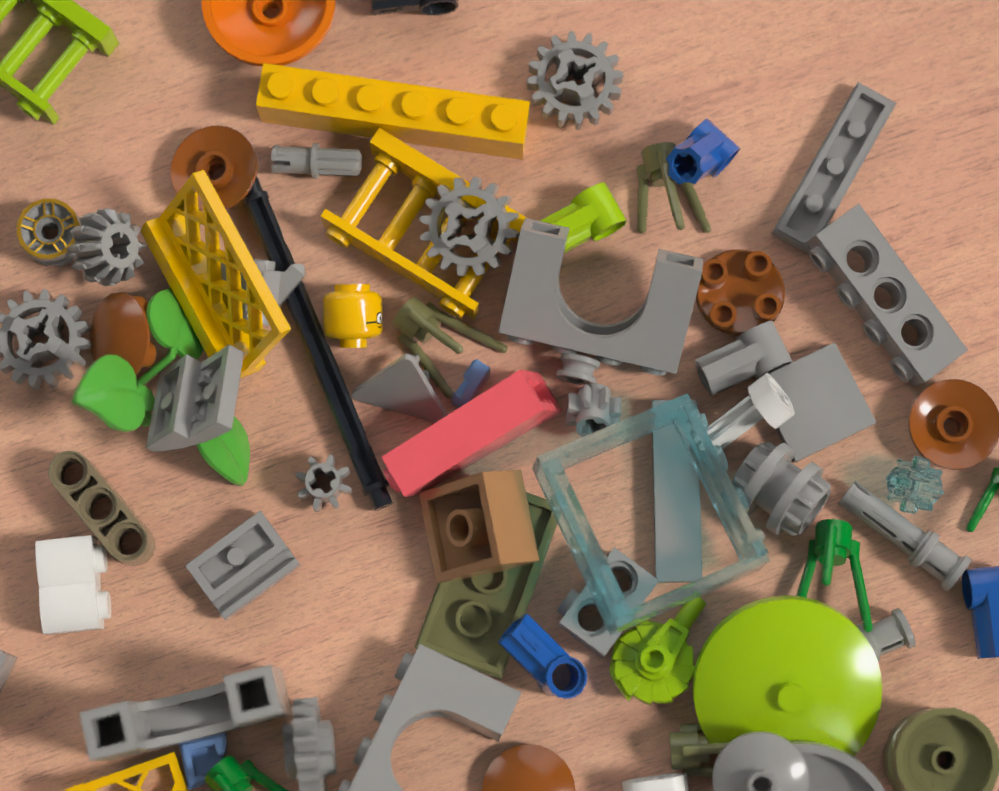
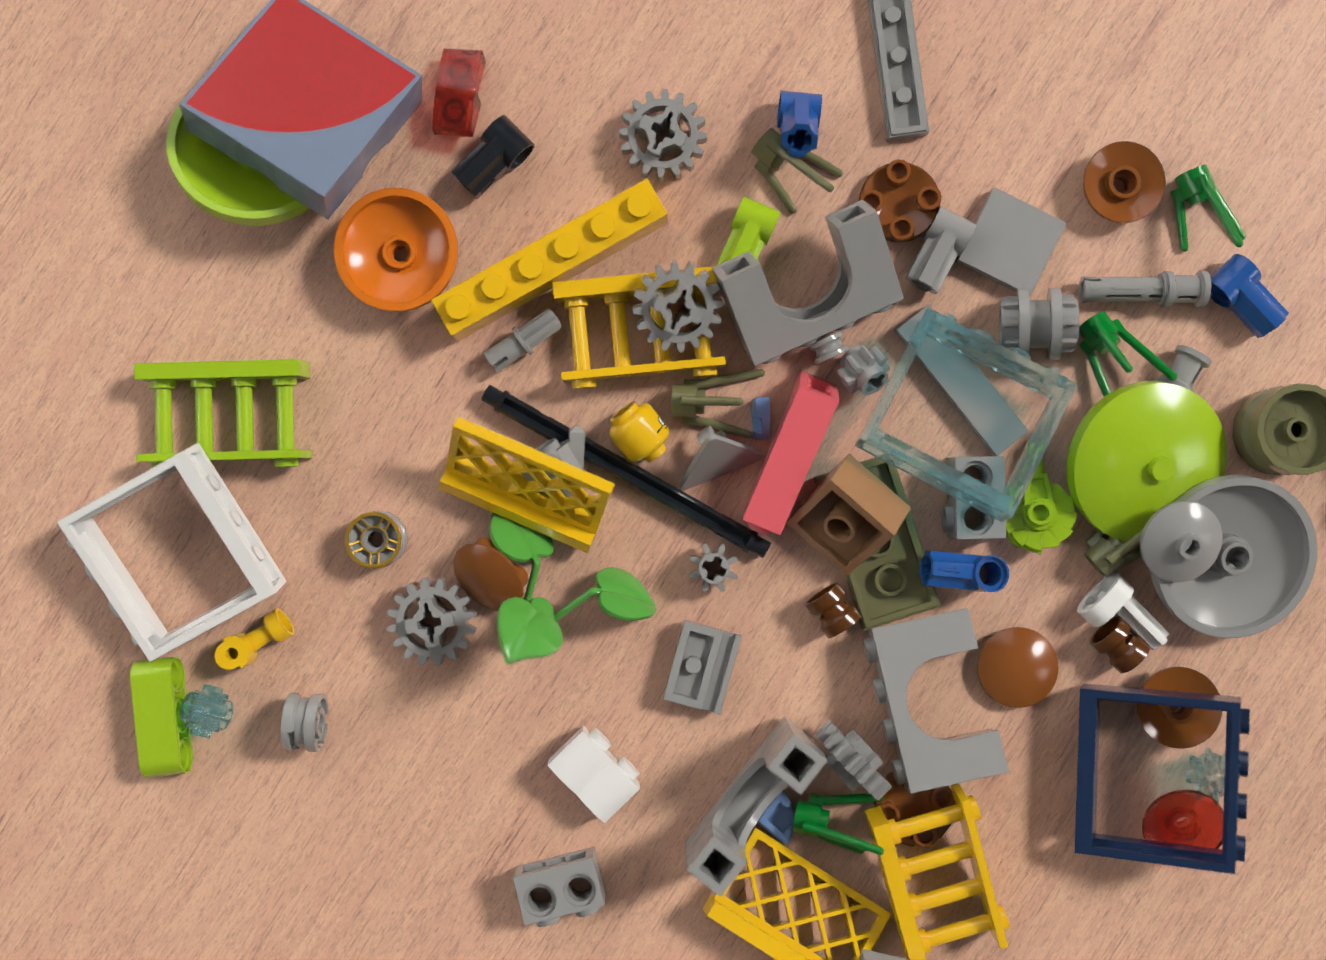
camera: 35 degrees left, 10 degrees up
(83, 497) = (553, 711): dark tan beam -> none
(106, 247) = (426, 521): light grey gear -> none
(195, 400) = (582, 583): light grey slope -> none
(215, 149) = (438, 394): dark orange dish -> none
(400, 607) = (834, 612): none -> reddish brown wheel
(765, 401) = (980, 269): white piece -> none
(910, 304) = (1068, 131): light grey brick -> none
(914, 485) = (1125, 238): clear light blue gear -> none

